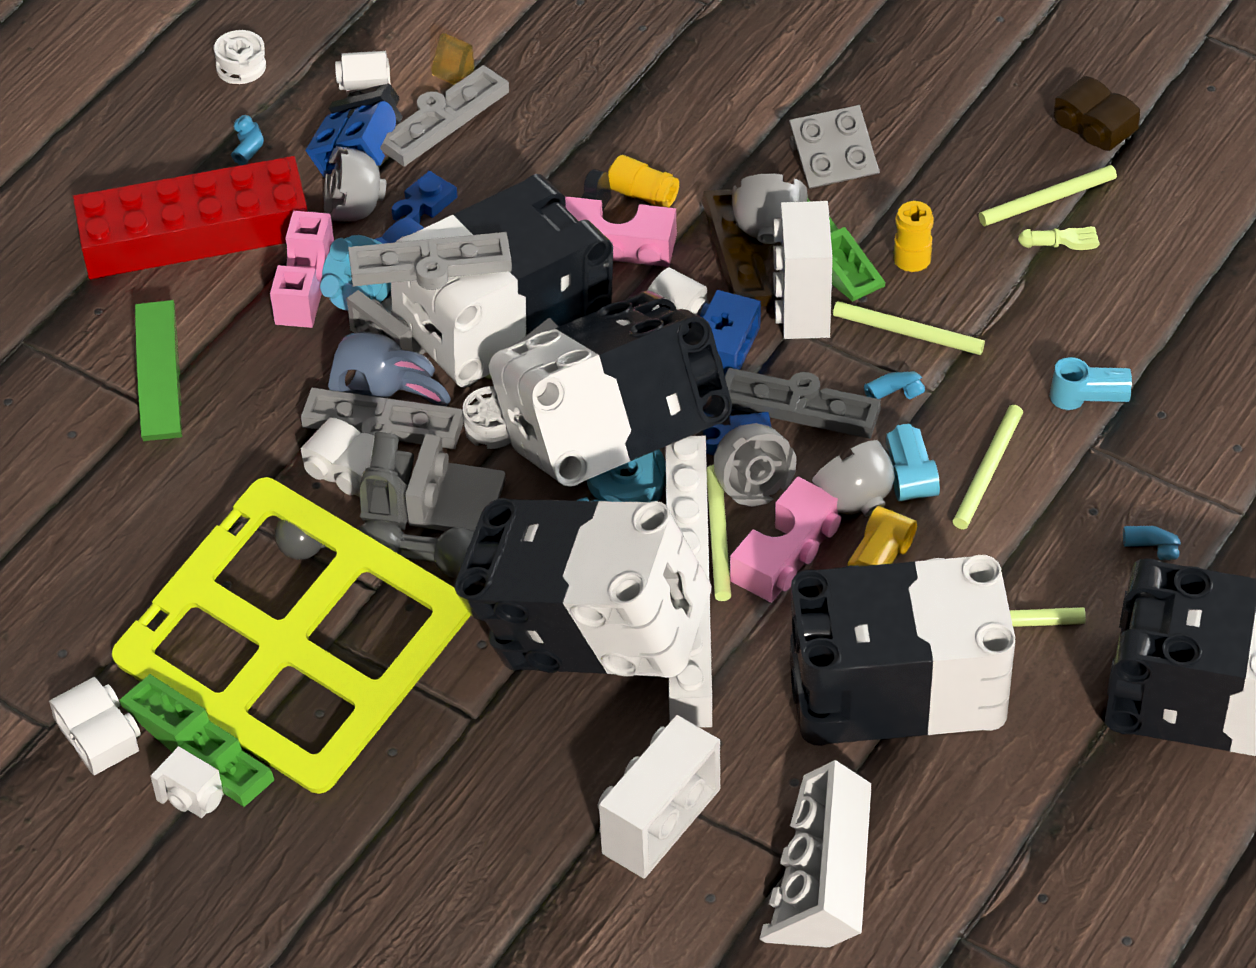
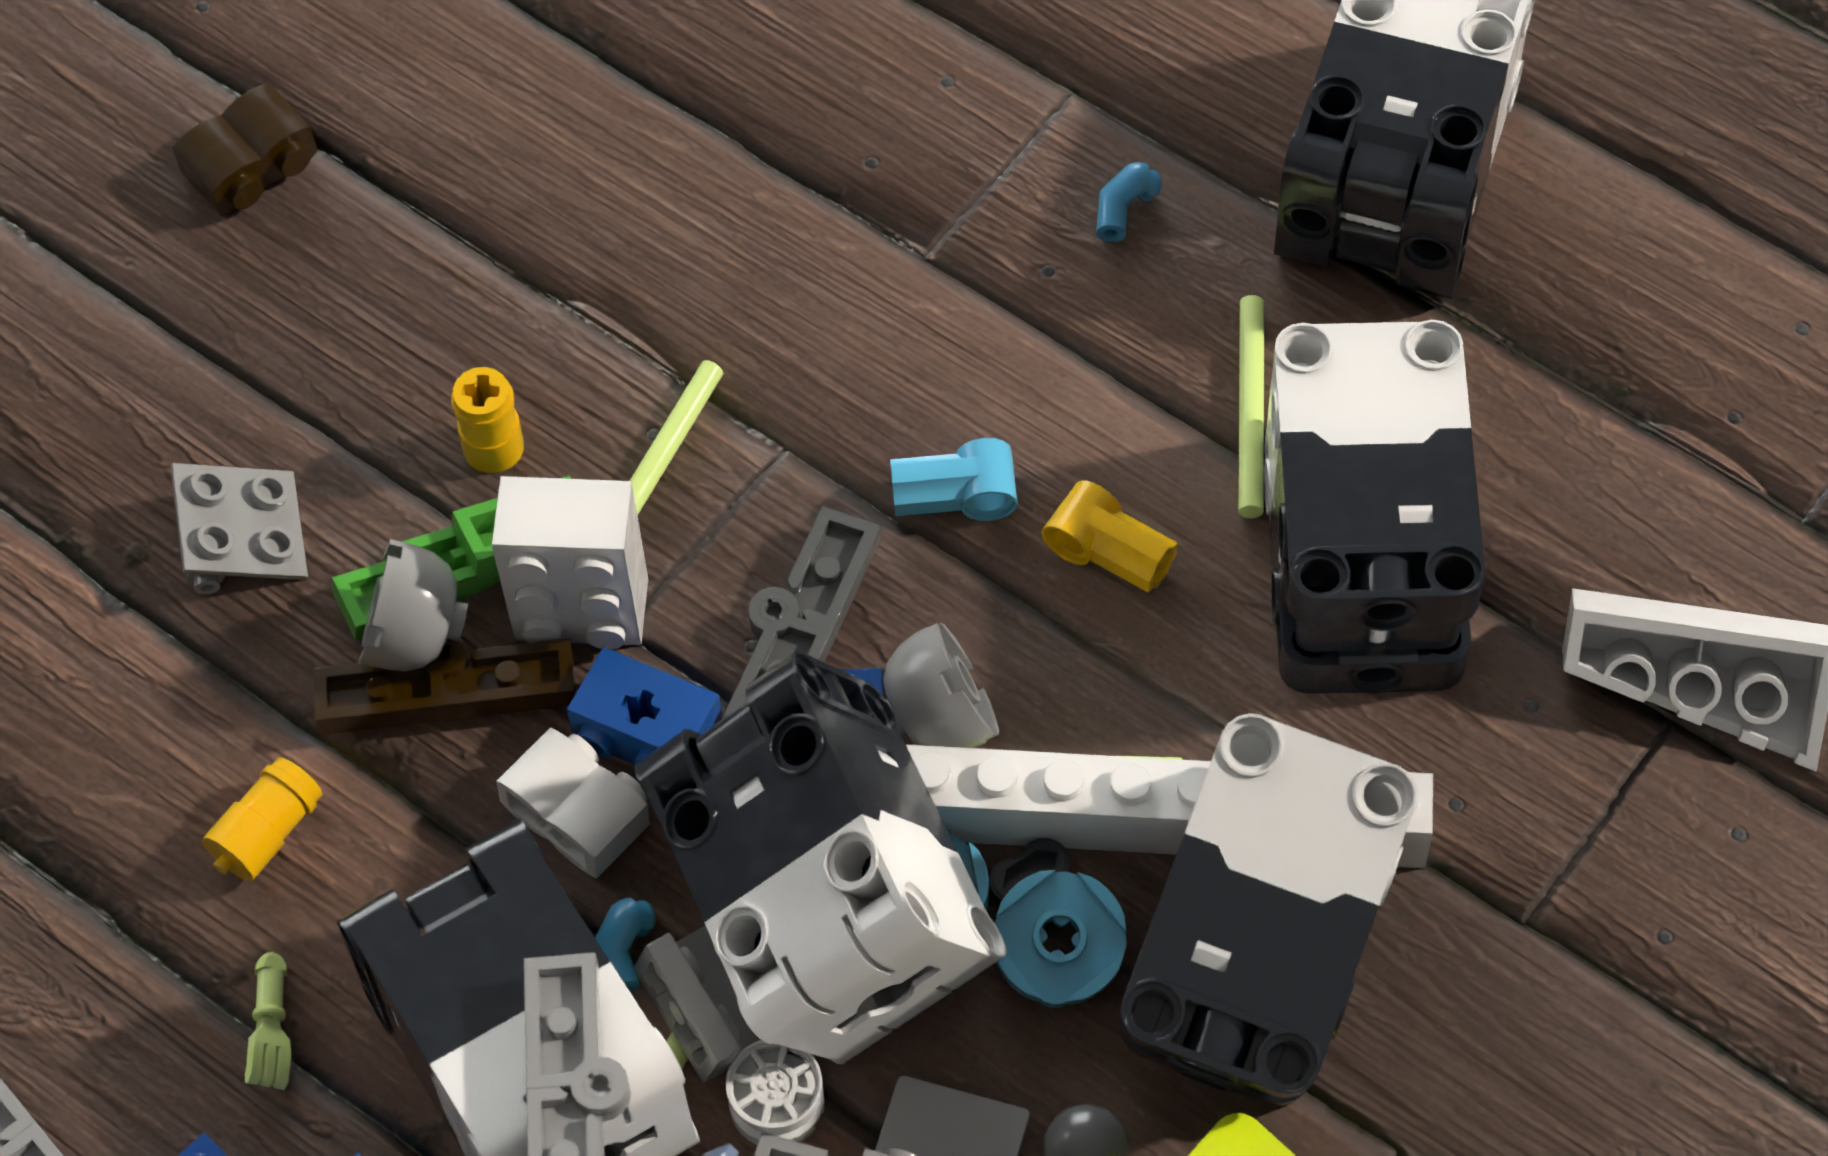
camera: 85 degrees left, 10 degrees up
(597, 187) = (278, 898): black tile -> none
(643, 240) = (398, 815): bright pink arch -> none
(659, 796) = (1608, 863): white brick -> none
(770, 563) = (1054, 630): bright pink arch -> none
(858, 480) = (992, 550): light grey cylinder -> none
(893, 382) = (772, 485): dark azure arm -> none
(987, 467) = (956, 388): yellowish green bar -> none
(1047, 195) = (401, 245): yellowish green bar -> none
(1073, 238) = (498, 222): yellowish green piece -> none
(1077, 382) = (822, 232): medium azure piece -> none

